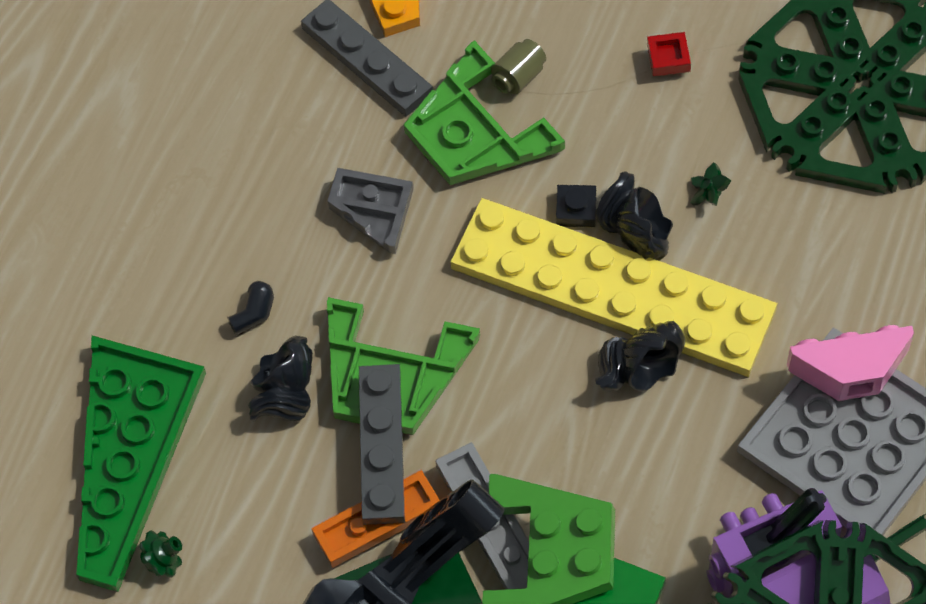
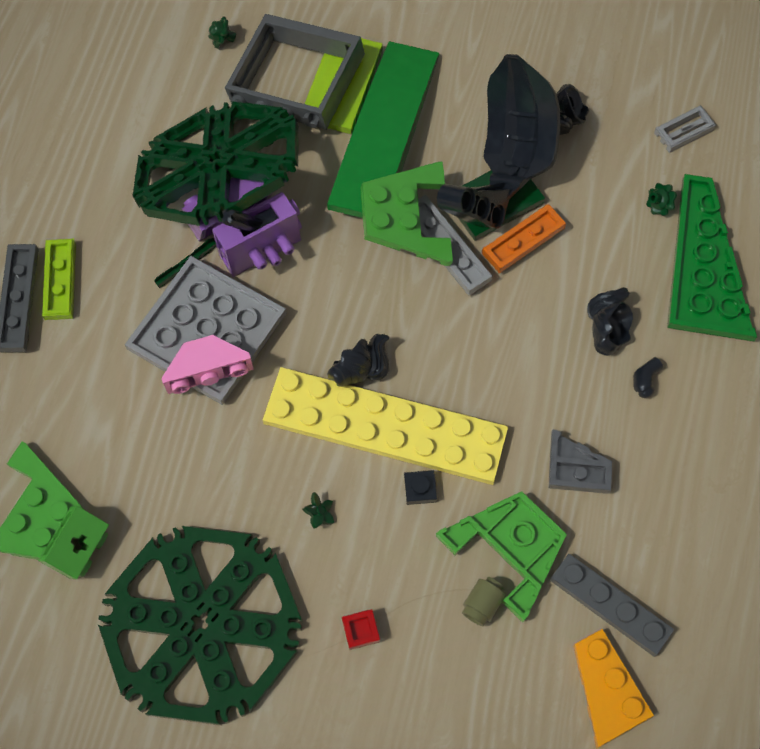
camera: 170 degrees right, 5 degrees up
(381, 444) = (531, 279): dark grey plate -> none
(421, 376) = (541, 329): bright green wing -> none
(635, 217) = (371, 471): black hair -> none

